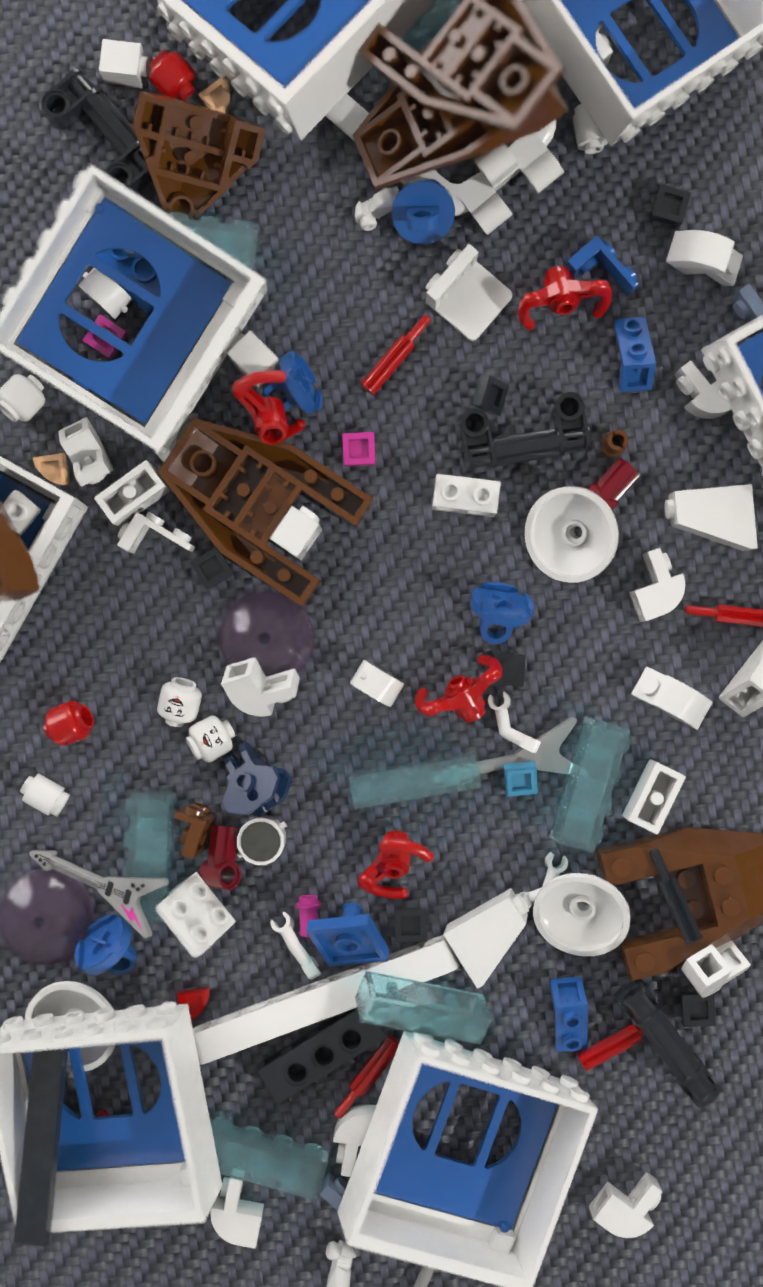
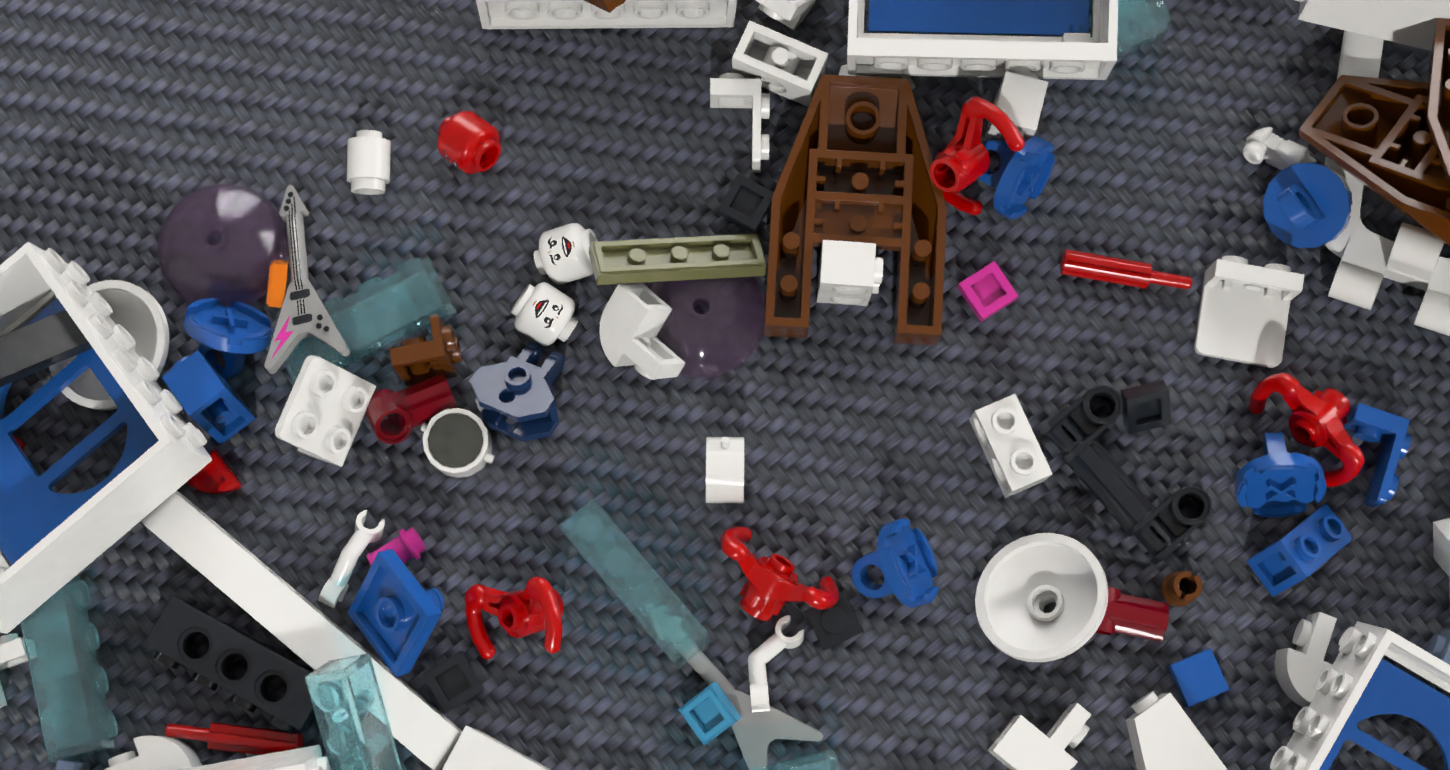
camera: 60 degrees right, 10 degrees down
(91, 897) = (277, 283): none -> orange tile
(142, 982) = (207, 397): none -> blue slope
(224, 635) = (677, 259): none -> olive tile
(586, 341) = (1279, 481): none -> blue tile
(672, 466) = (1198, 677): none -> blue tile

